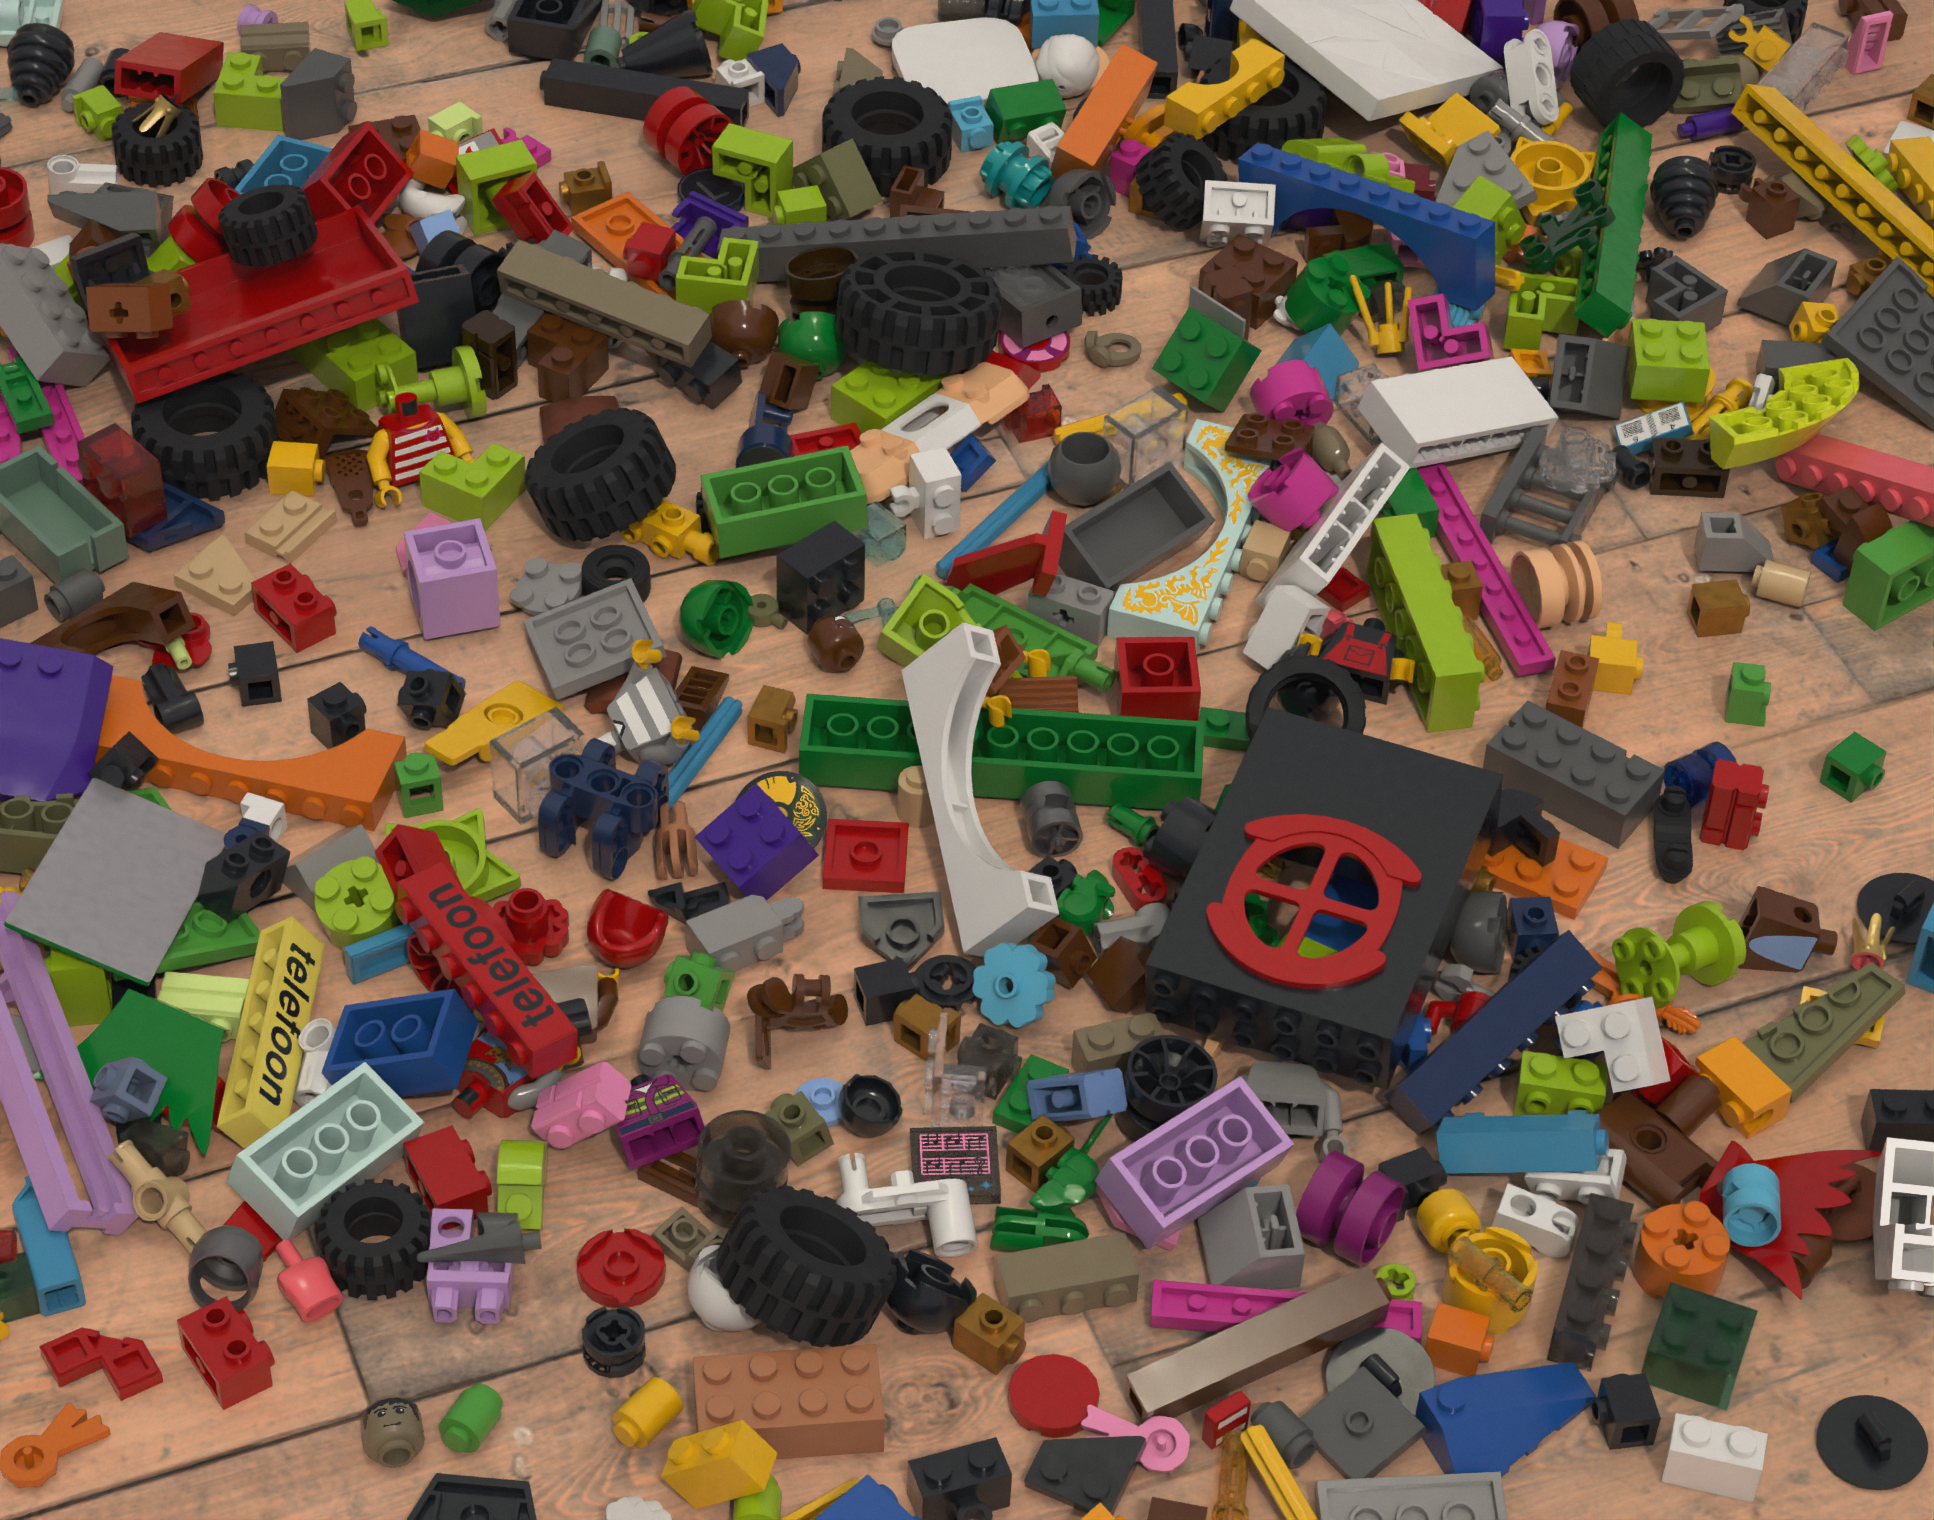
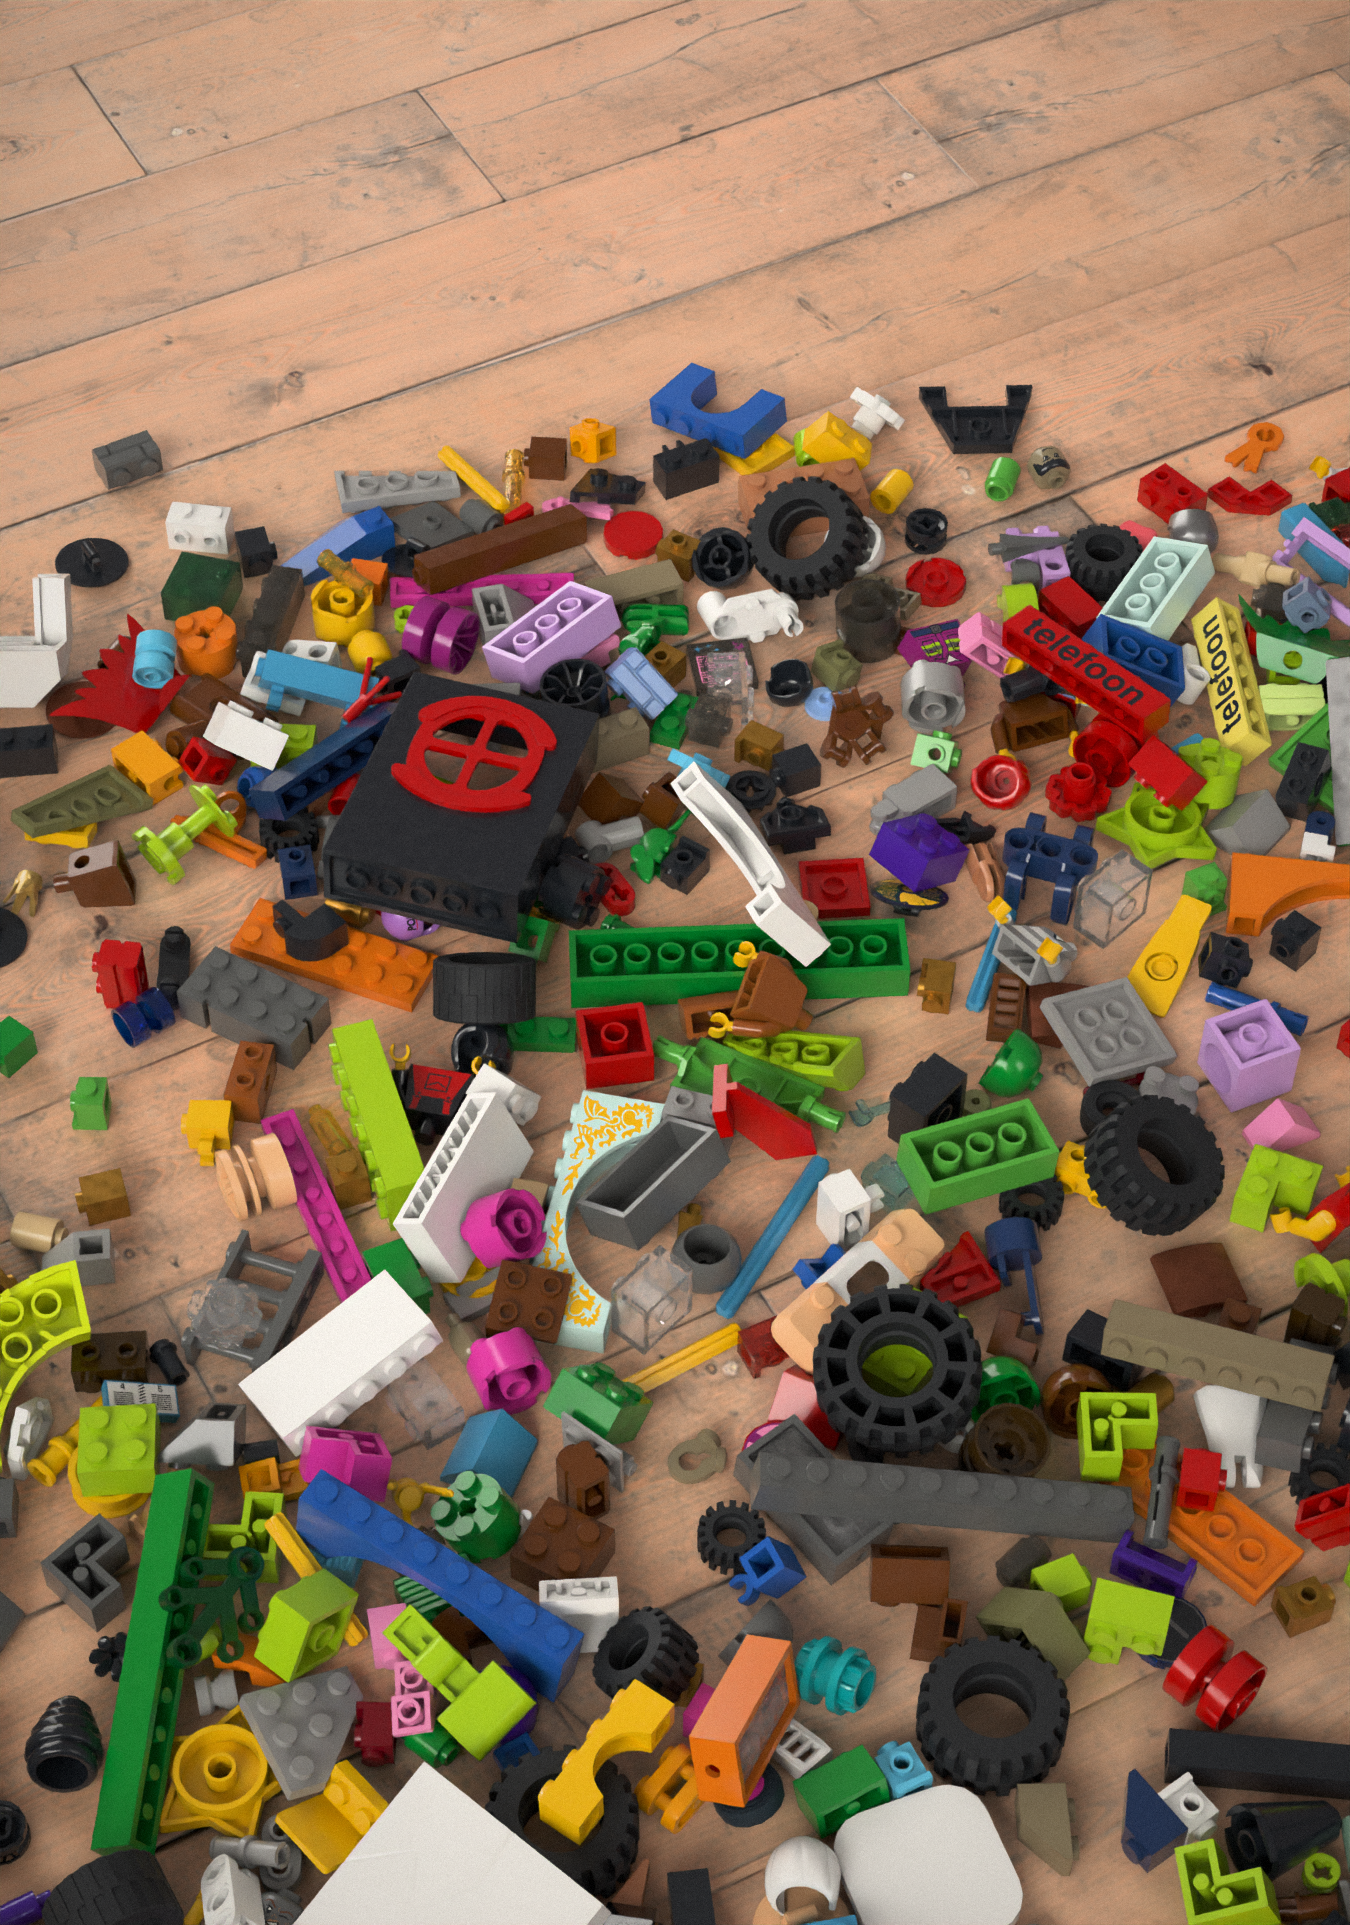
camera: 175 degrees right, 5 degrees up
(835, 641) = (898, 1057): reddish brown head -> none
(1051, 819) = (686, 907): flat silver wheel -> none
(1454, 1107) = (366, 699): none -> red plant

